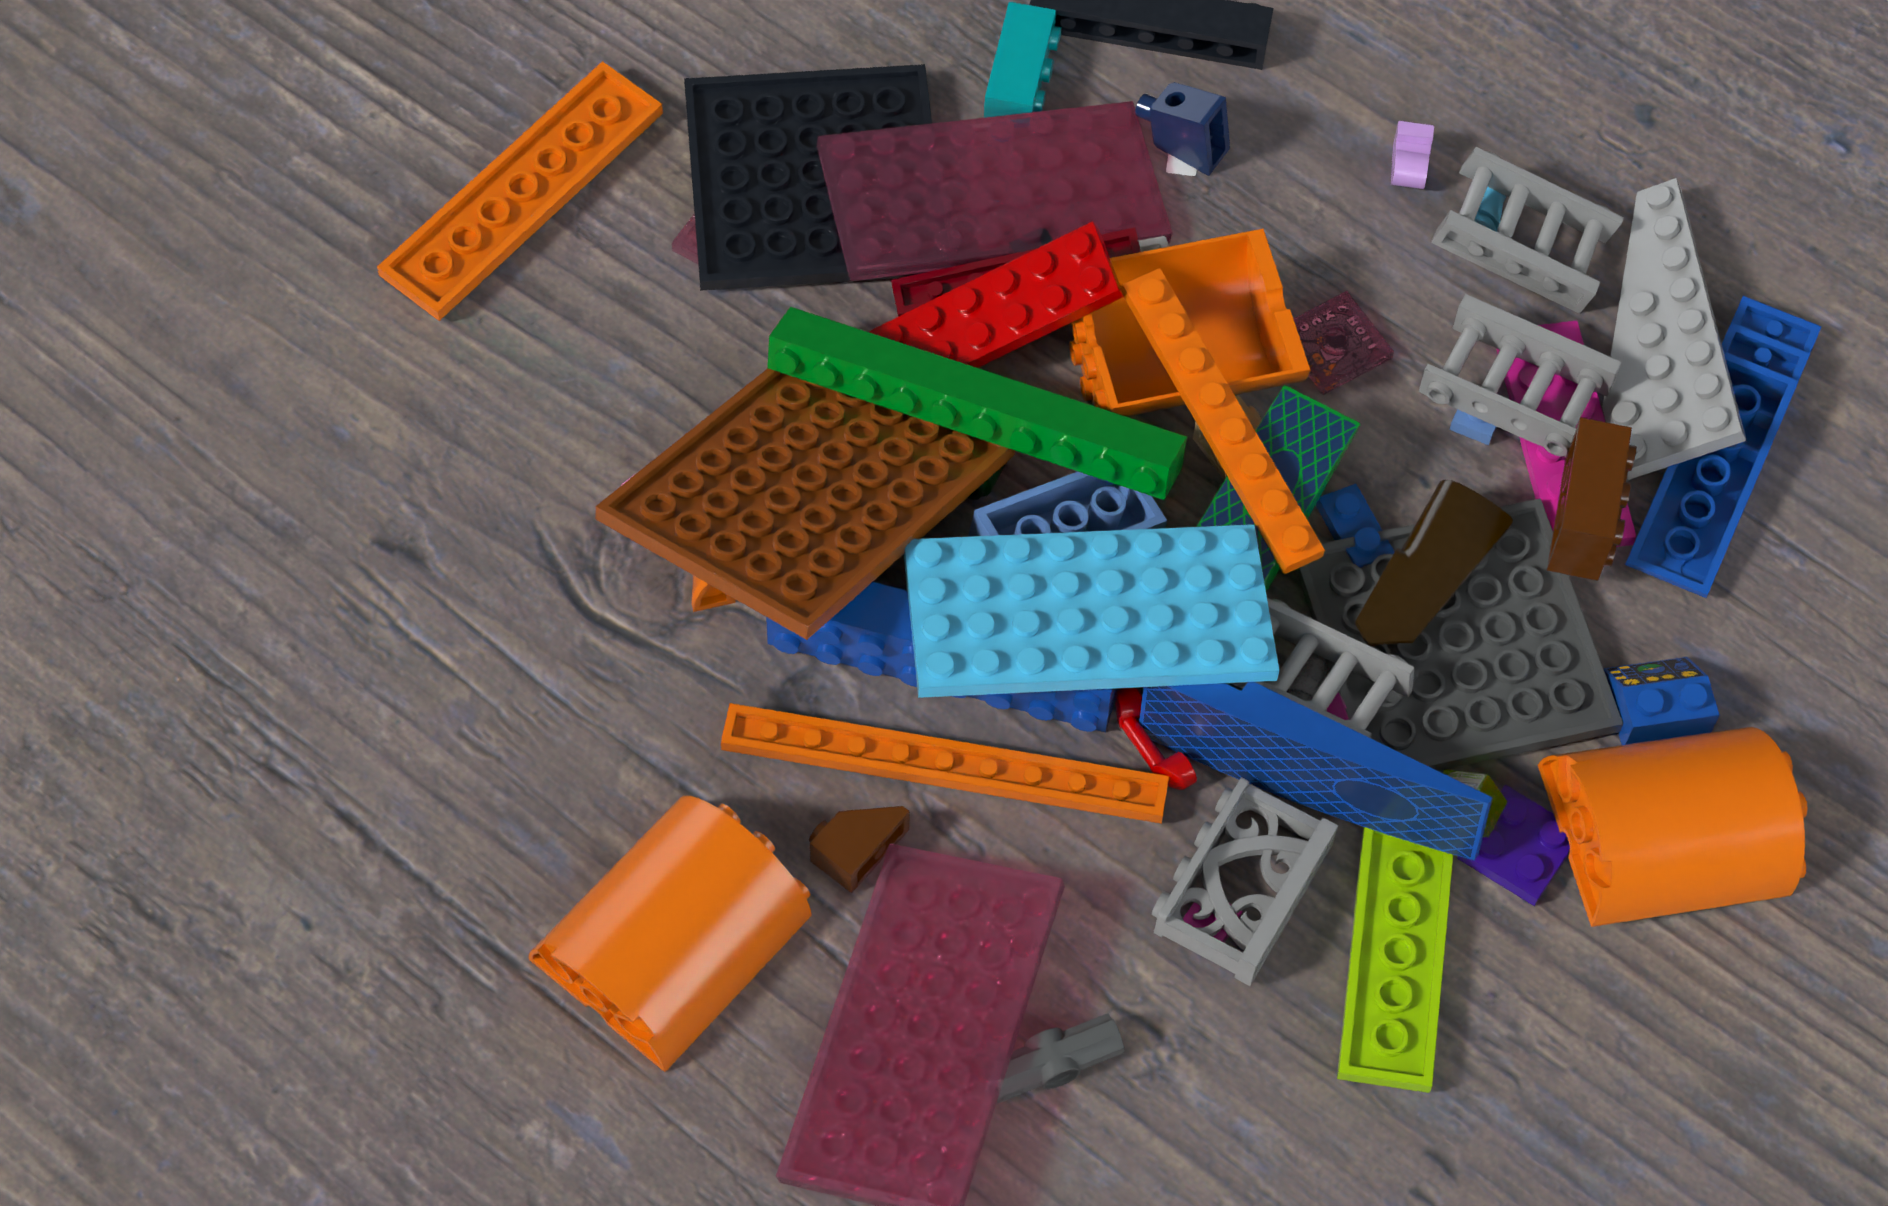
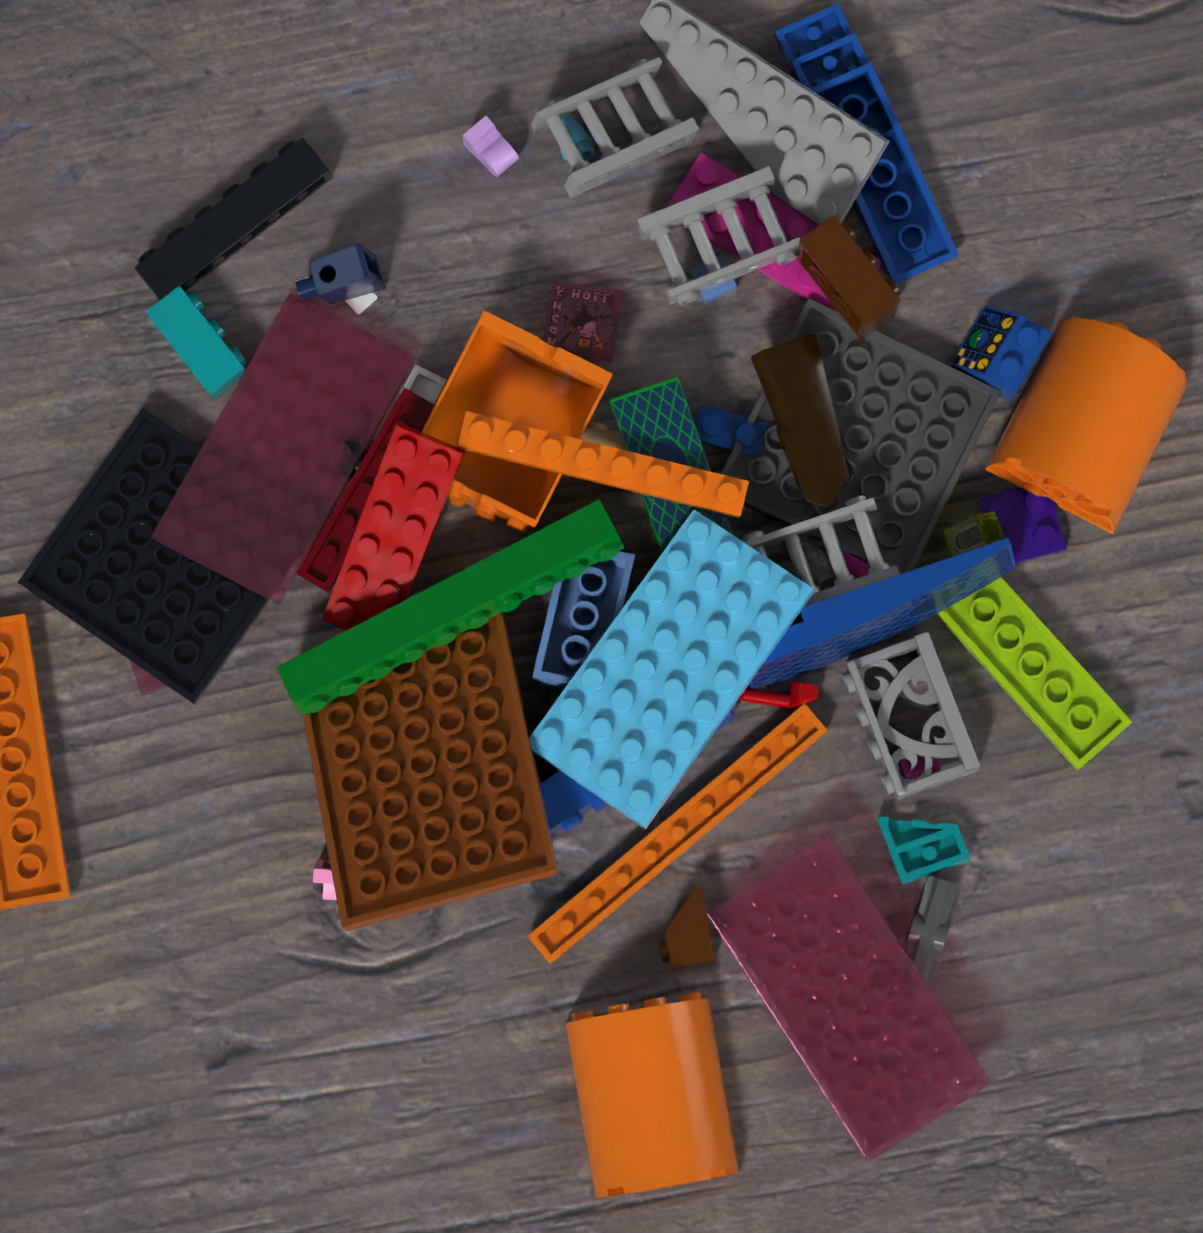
camera: 45 degrees left, 20 degrees up
(1130, 991) = (922, 847): none -> teal wing

